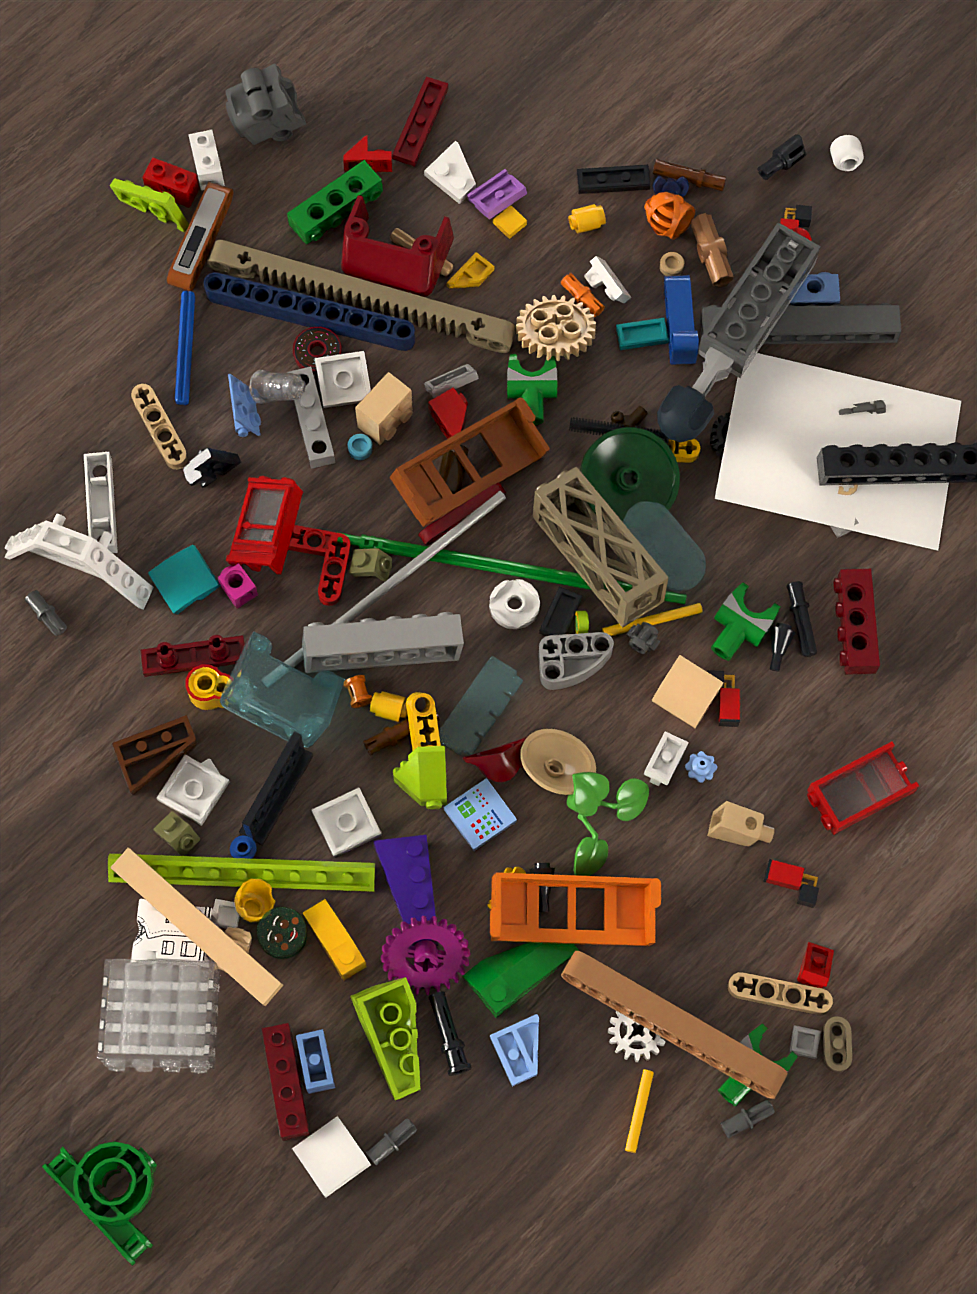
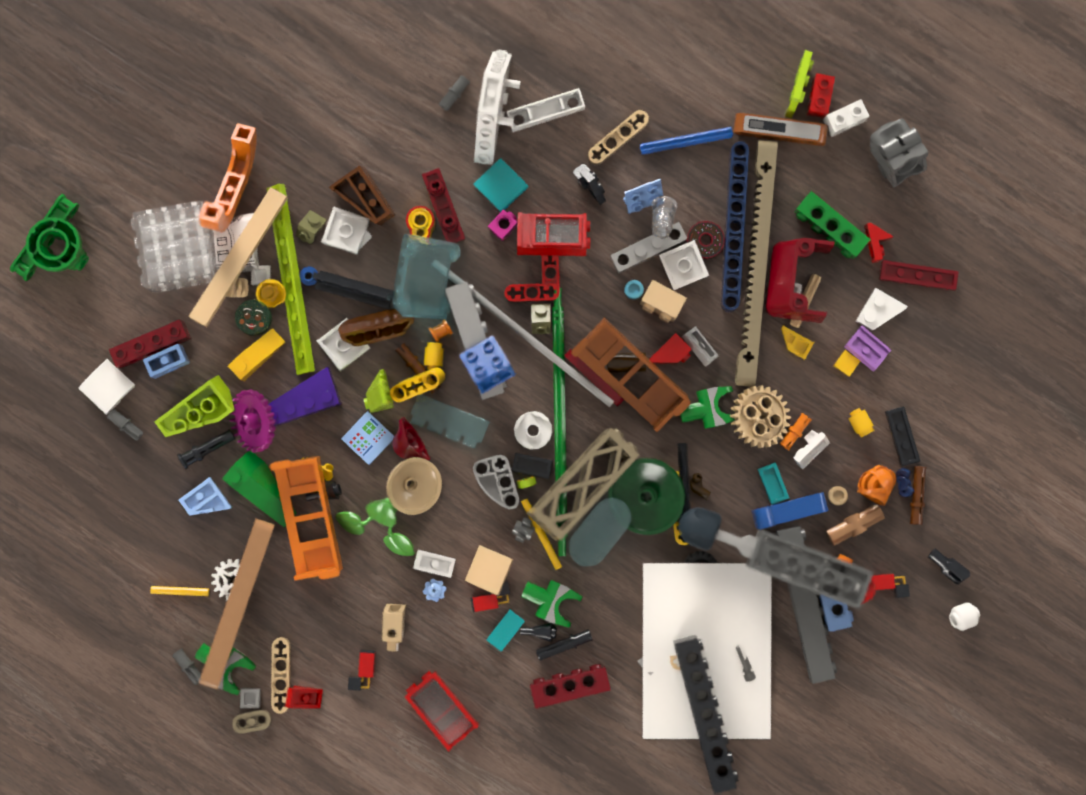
camera: 80 degrees right, 15 degrees up
(123, 934) = (220, 214): none -> orange arch
(333, 771) = (374, 327): none -> reddish brown brick
(418, 622) = (487, 364): none -> bracket
(770, 689) = (505, 630): none -> teal tile

